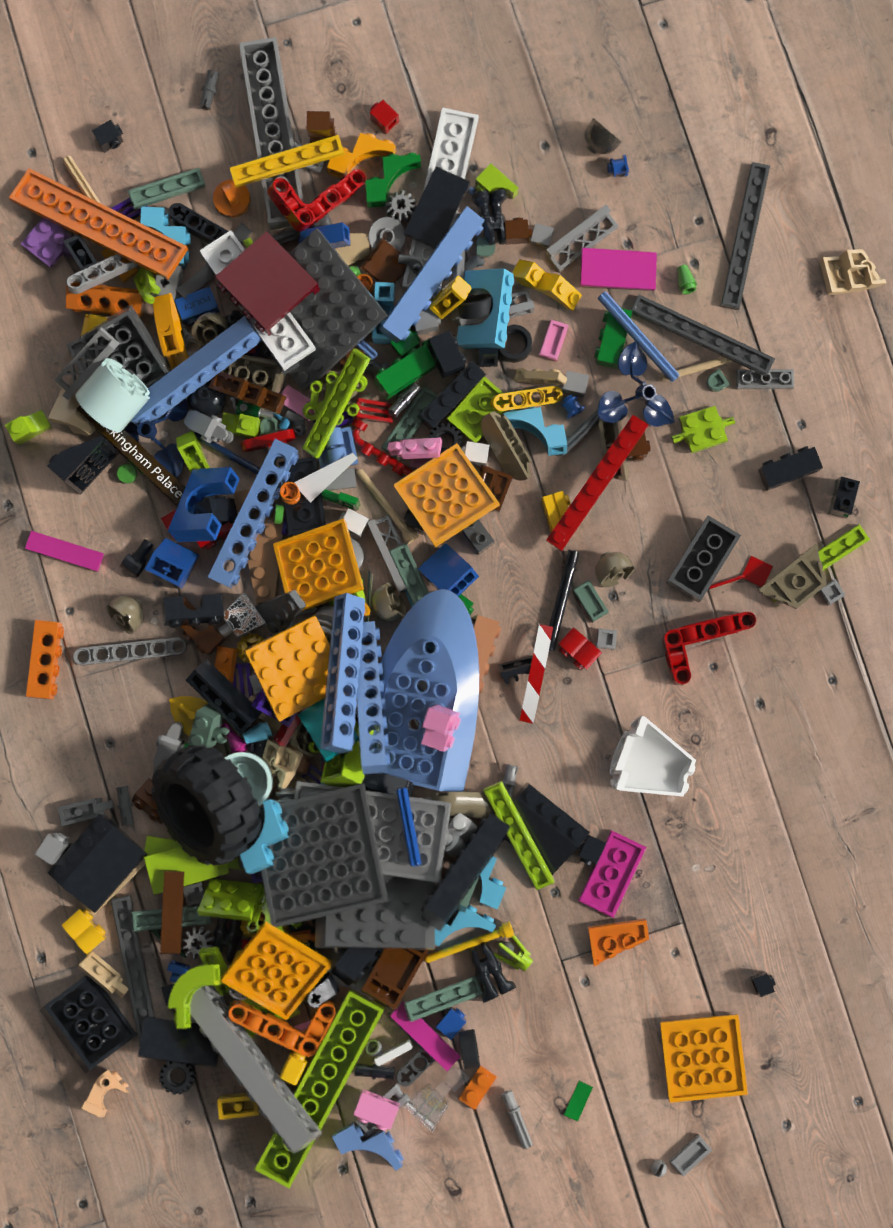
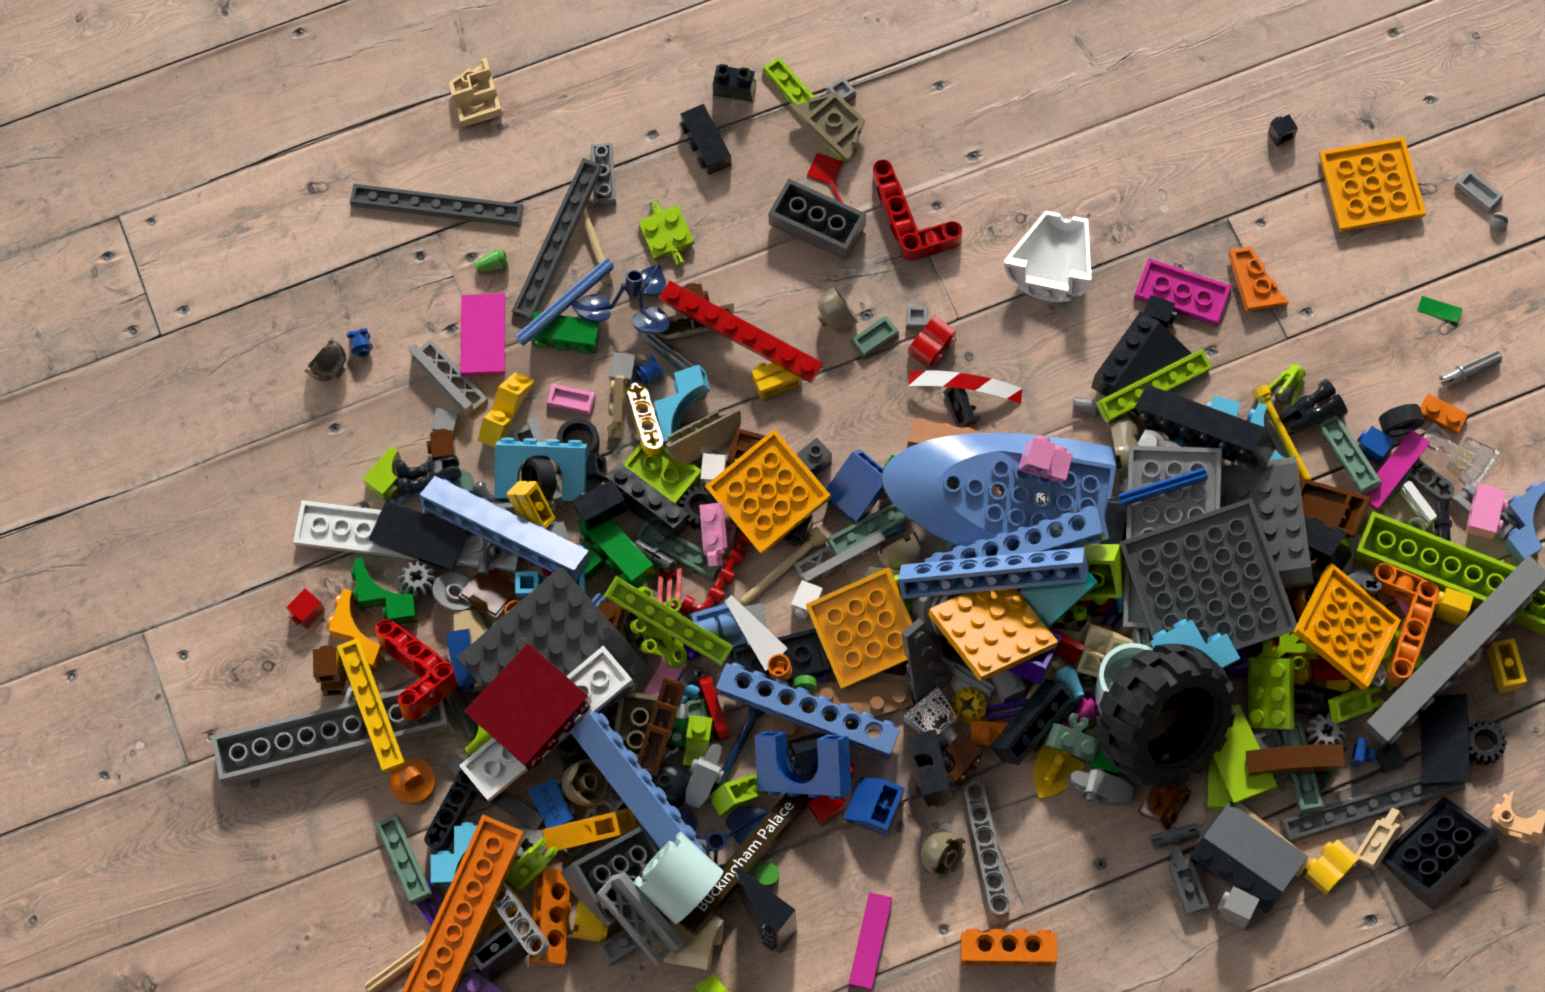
camera: 95 degrees left, 15 degrees down
(108, 135) = (338, 937): black brick -> none
(134, 562) = (877, 852): black pin -> none
(186, 987) = (1380, 721): lime arch -> none
(208, 90) = (274, 821): dark grey pin -> none
(341, 499) = (782, 608): green tile -> none
(562, 596) = (867, 365): black axle -> none
(717, 381) = (609, 223): sand green tile -> none

